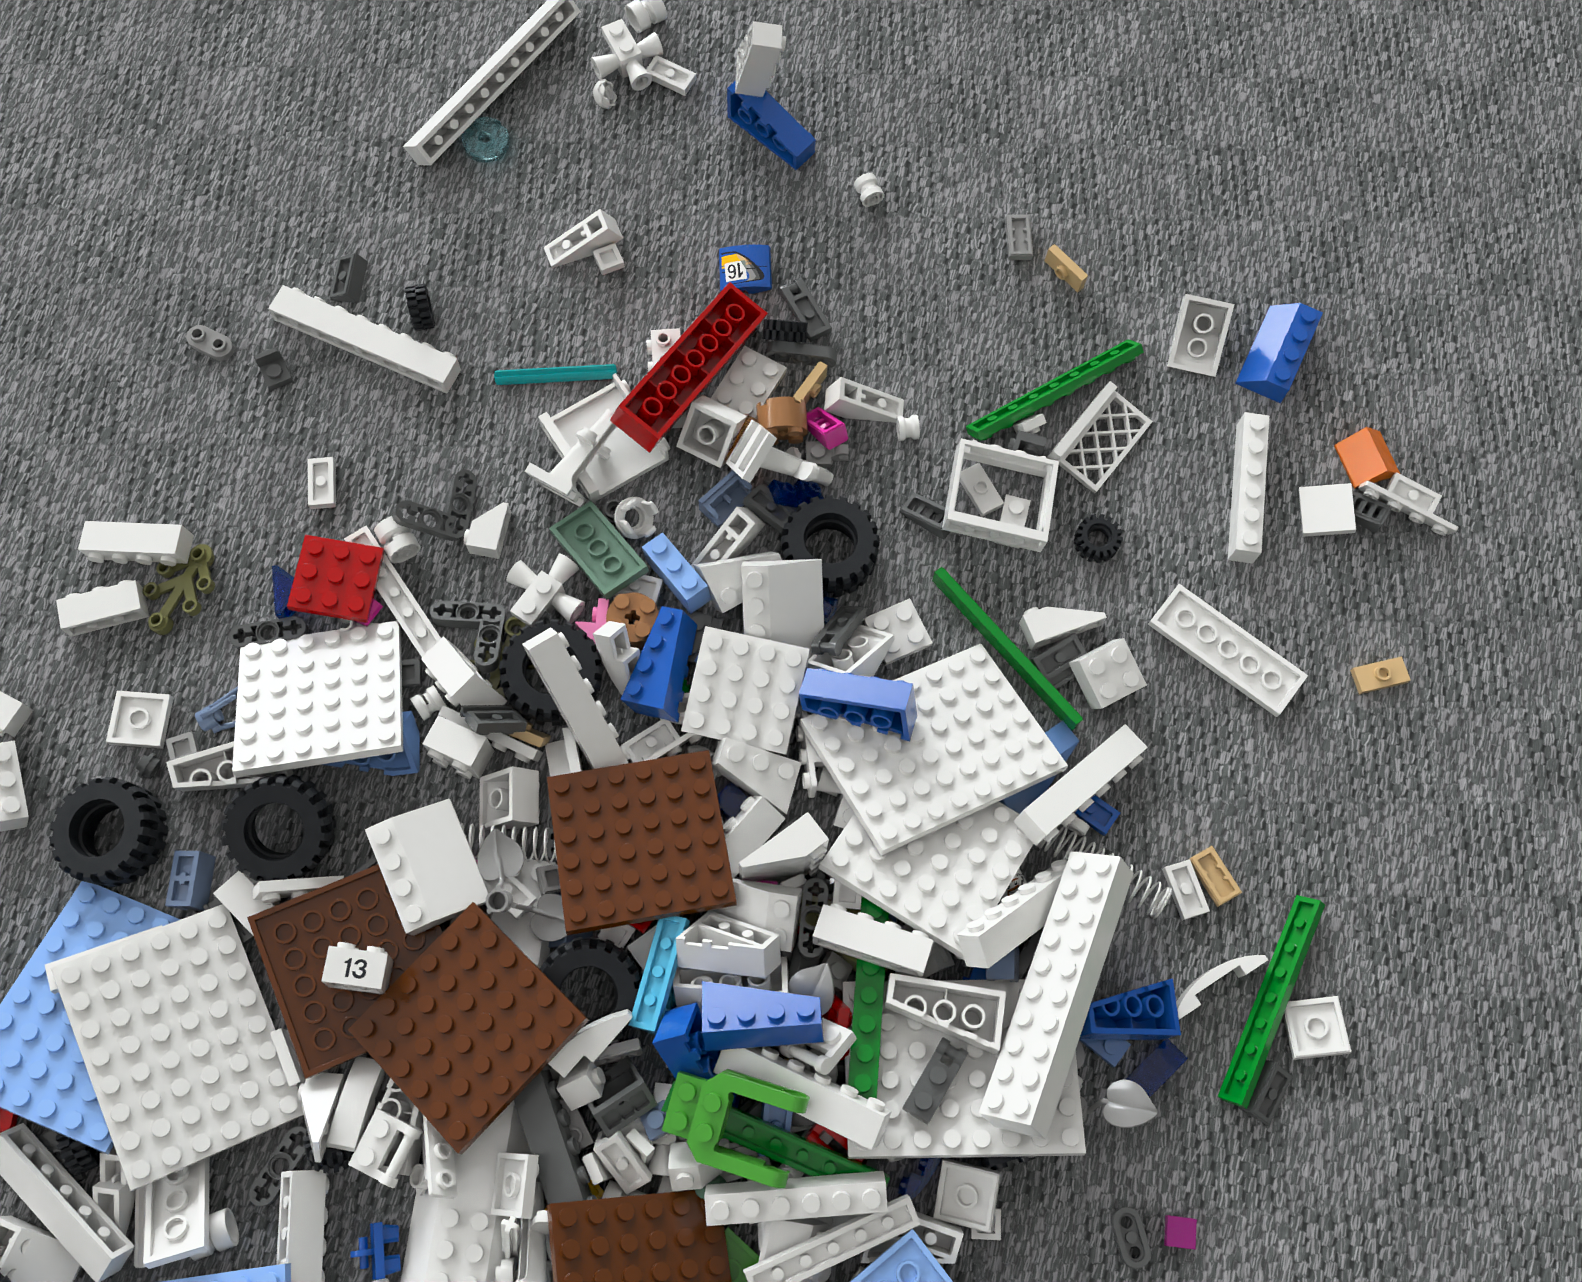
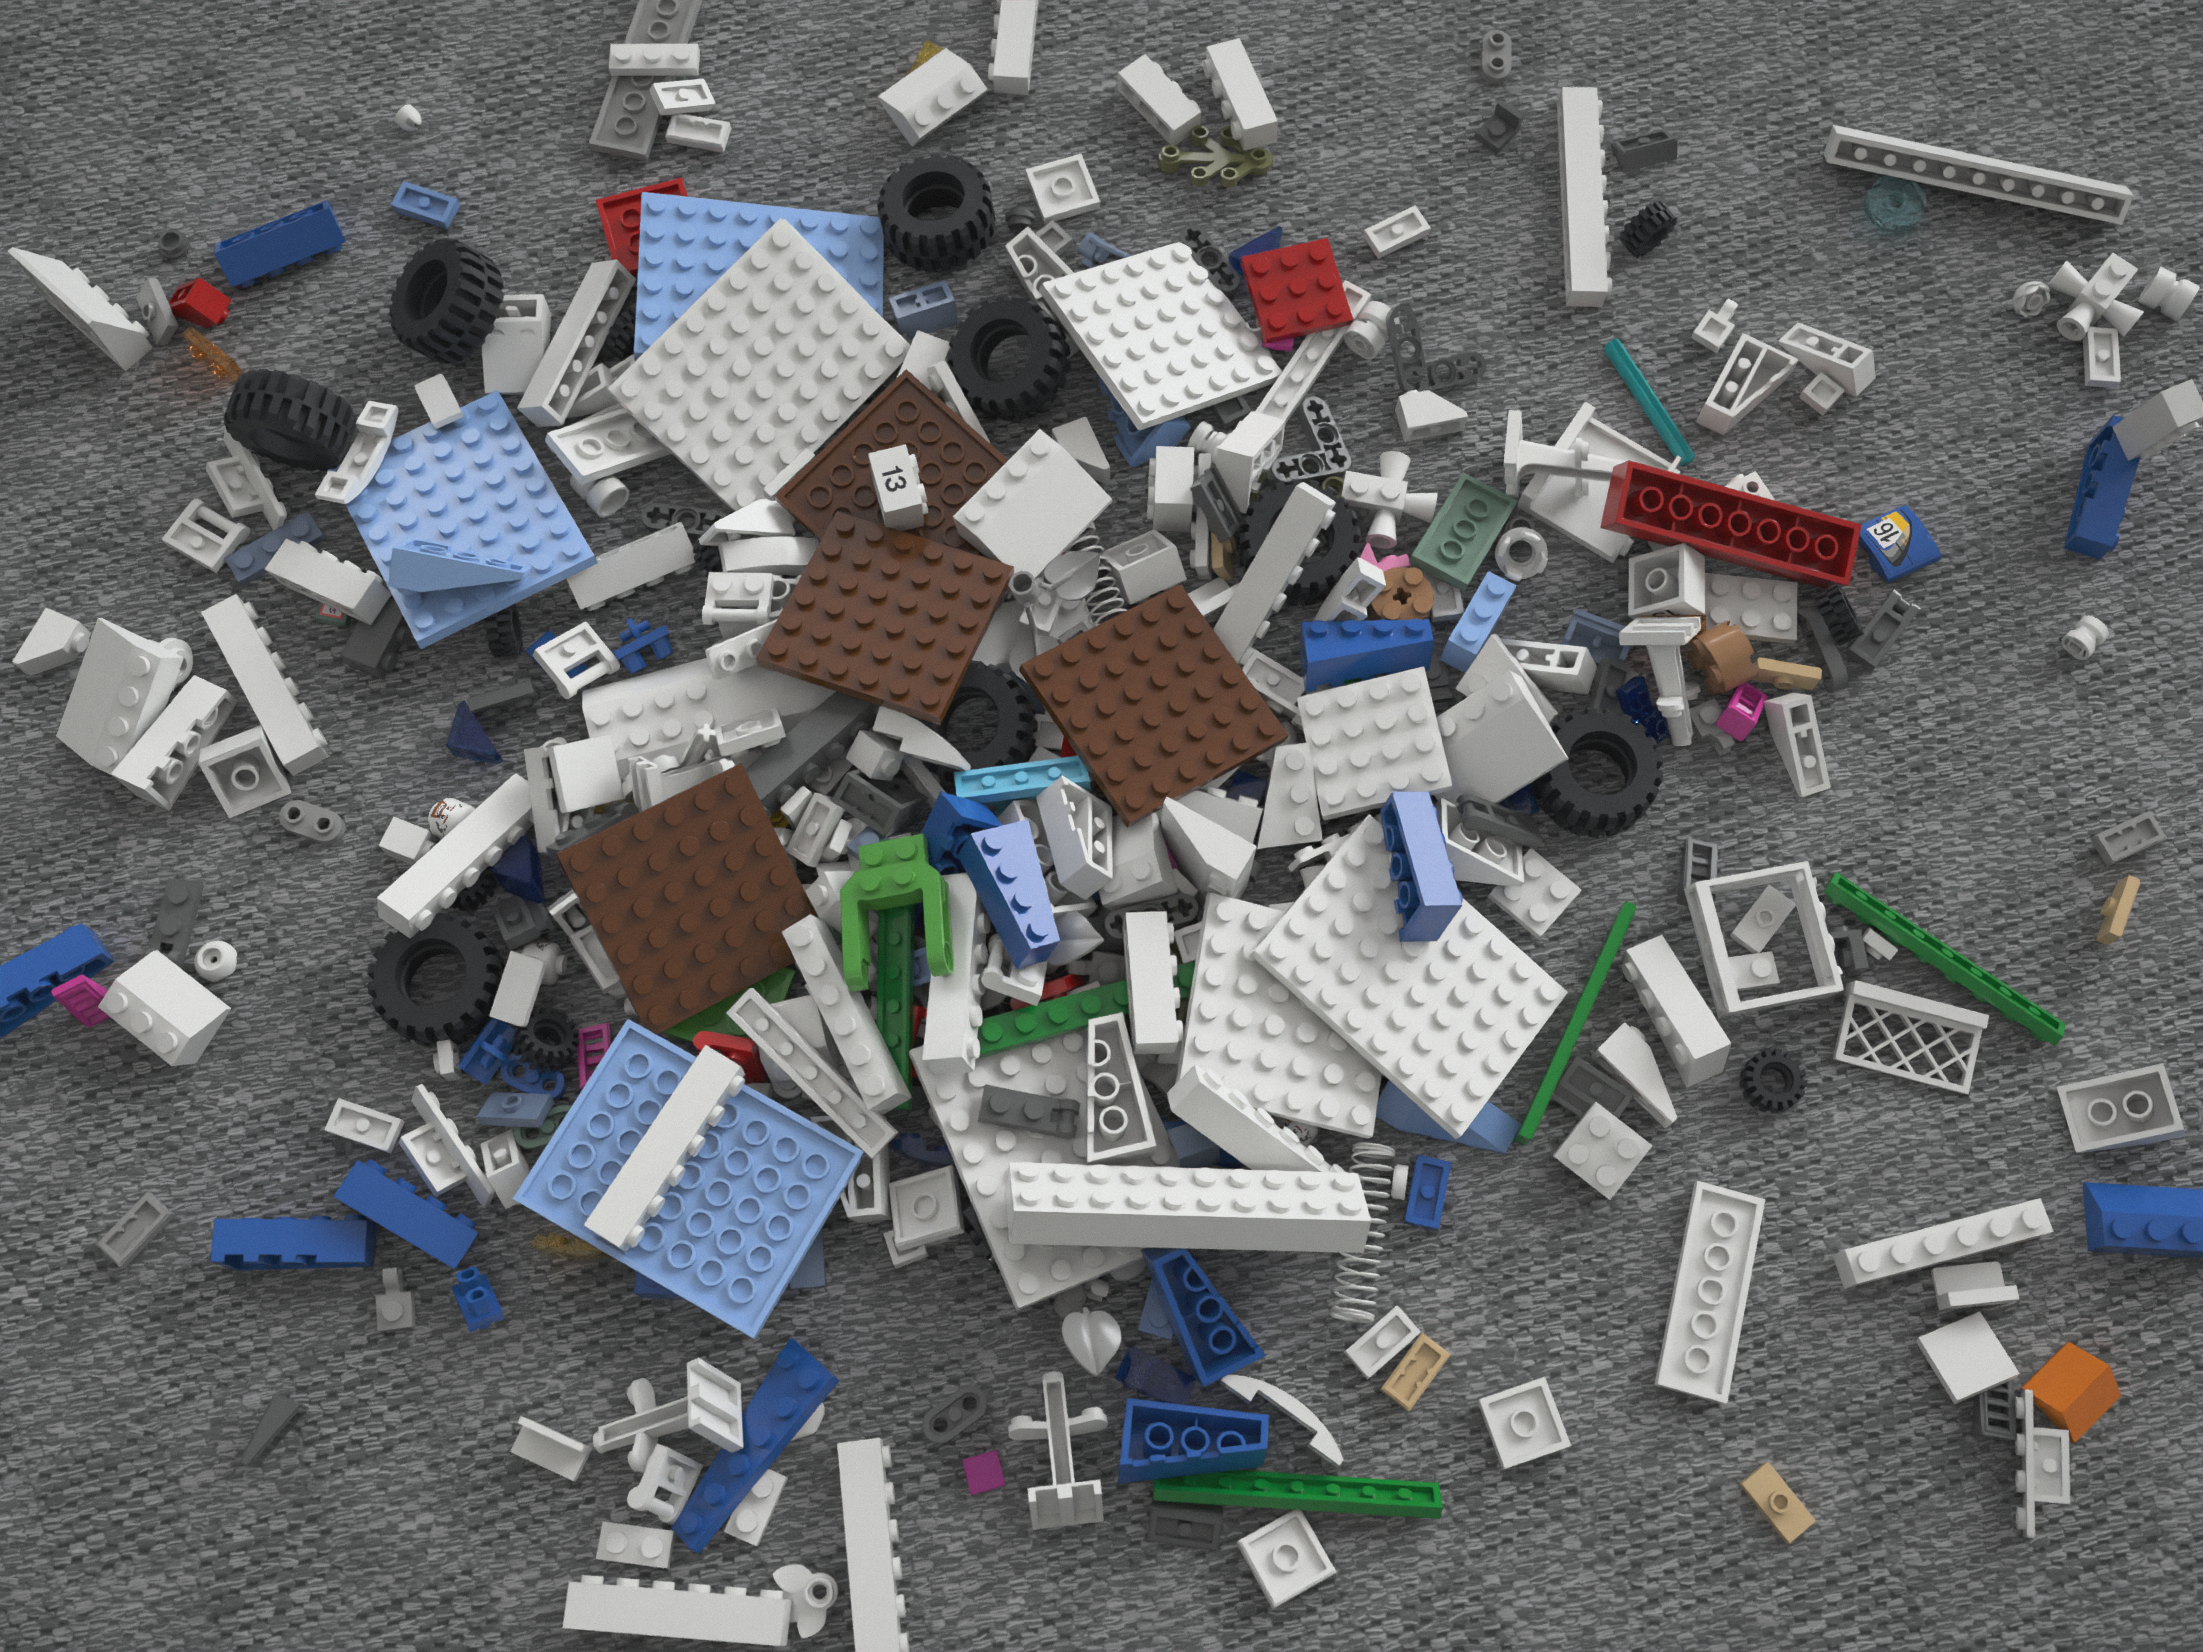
camera: 70 degrees right, 0 degrees up
(383, 803) = (1083, 446): none -> white slope
(520, 302) = (1715, 328): none -> white plate
(574, 303) = (1744, 383): none -> white wedge
(907, 427) = (1795, 804): white wheel -> none
(1024, 576) = (1677, 1011): none -> white wedge
(1080, 784) = (1447, 1162): white brick -> none
(1212, 1067) = (1188, 1440): none -> blue wedge
(1224, 1174) = (1064, 1501): none -> white piece
(1275, 817) = (1523, 1423): none -> white plate
(1282, 483) = (1971, 1286): none -> white panel

